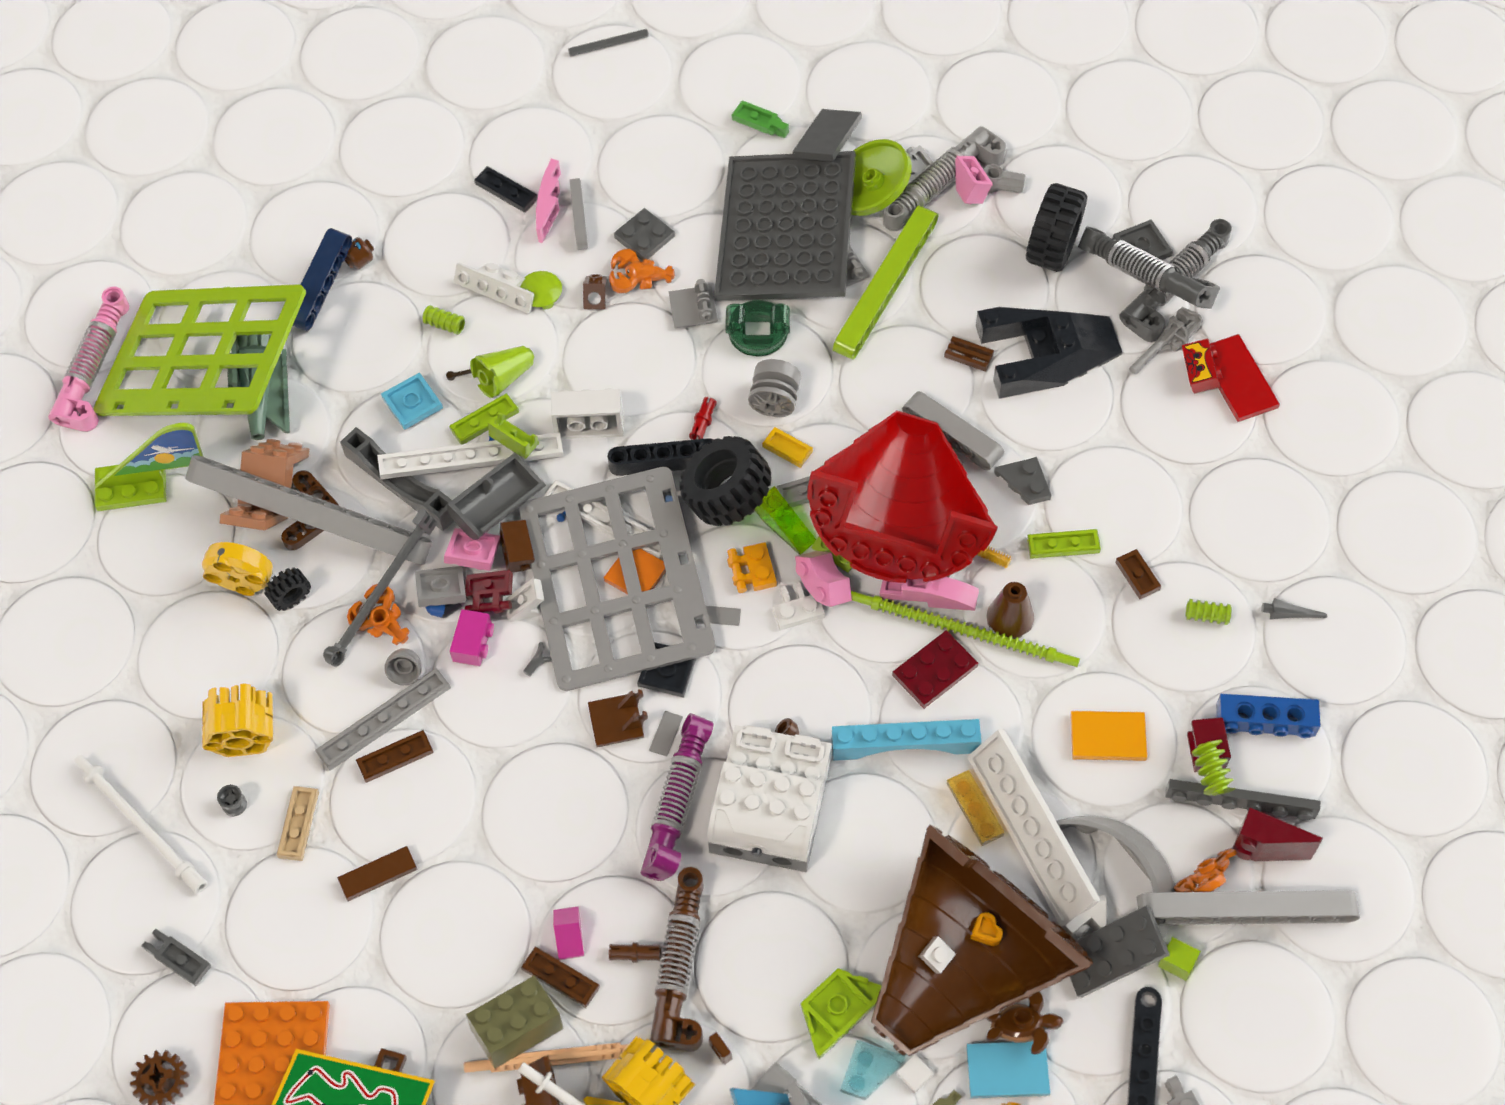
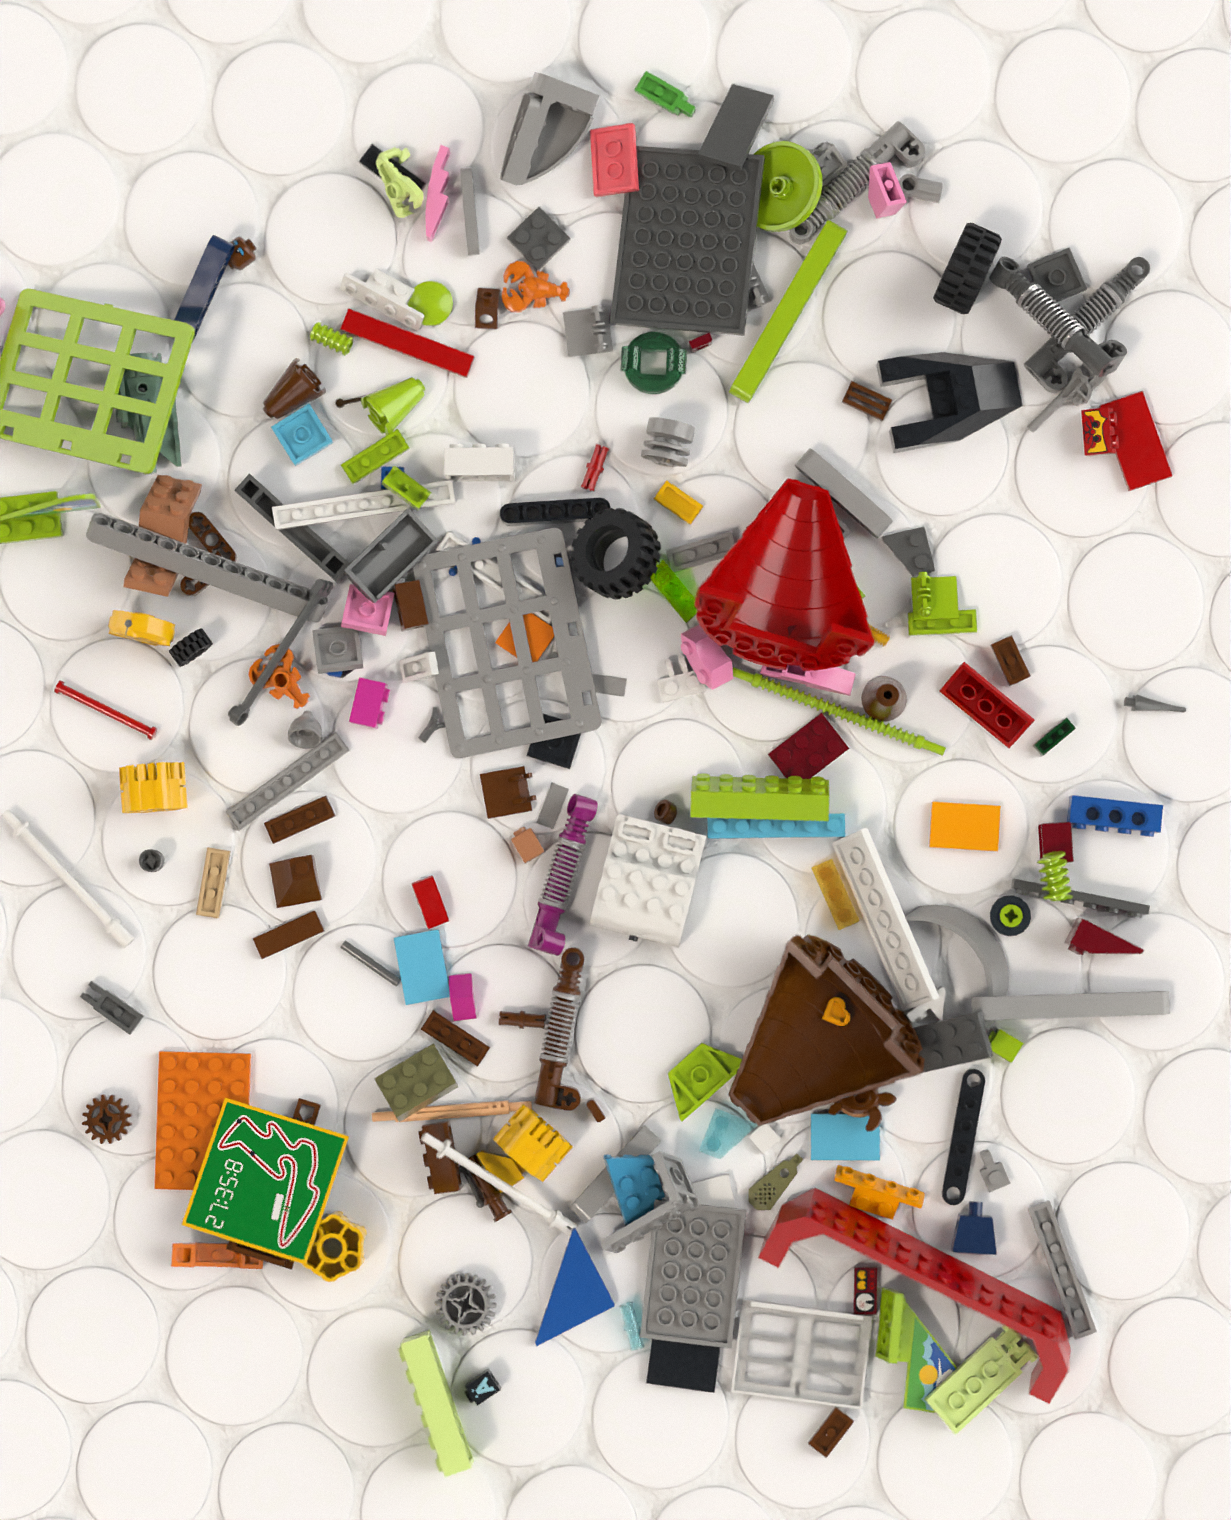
camera: 10 degrees right, 25 degrees up
(151, 637) = (106, 710): none -> red bar
(387, 815) = (295, 881): none -> reddish brown slope
(403, 361) = (293, 390): none -> reddish brown cone
(467, 900) = (369, 962): none -> dark grey bar
(489, 585) = (384, 648): dark red plate -> none
(511, 191) = (397, 185): none -> yellowish green animal
(518, 322) = (407, 343): none -> red tile
(523, 902) = (422, 967): none -> medium azure tile
(533, 831) = (430, 902): none -> red slope
(639, 769) = (527, 844): none -> nougat brick
(652, 140) = (546, 128): none -> light grey panel
(714, 168) = (614, 160): none -> coral tile
(759, 566) = (645, 634): light orange plate -> none
(802, 309) = (700, 342): none -> dark red tile
(887, 706) = (760, 797): none -> lime brick
(937, 955) = (790, 1036): white plate -> none
(1052, 518) = (934, 597): none -> lime hinge
(1119, 613) = (986, 705): none -> red slope
(1161, 827) = (1002, 915): none -> black wheel
(1192, 644) = (1053, 737): none -> dark green piece
(1208, 611) = (1072, 704): lime piece -> none
(1208, 874) = (1039, 972): orange animal -> none

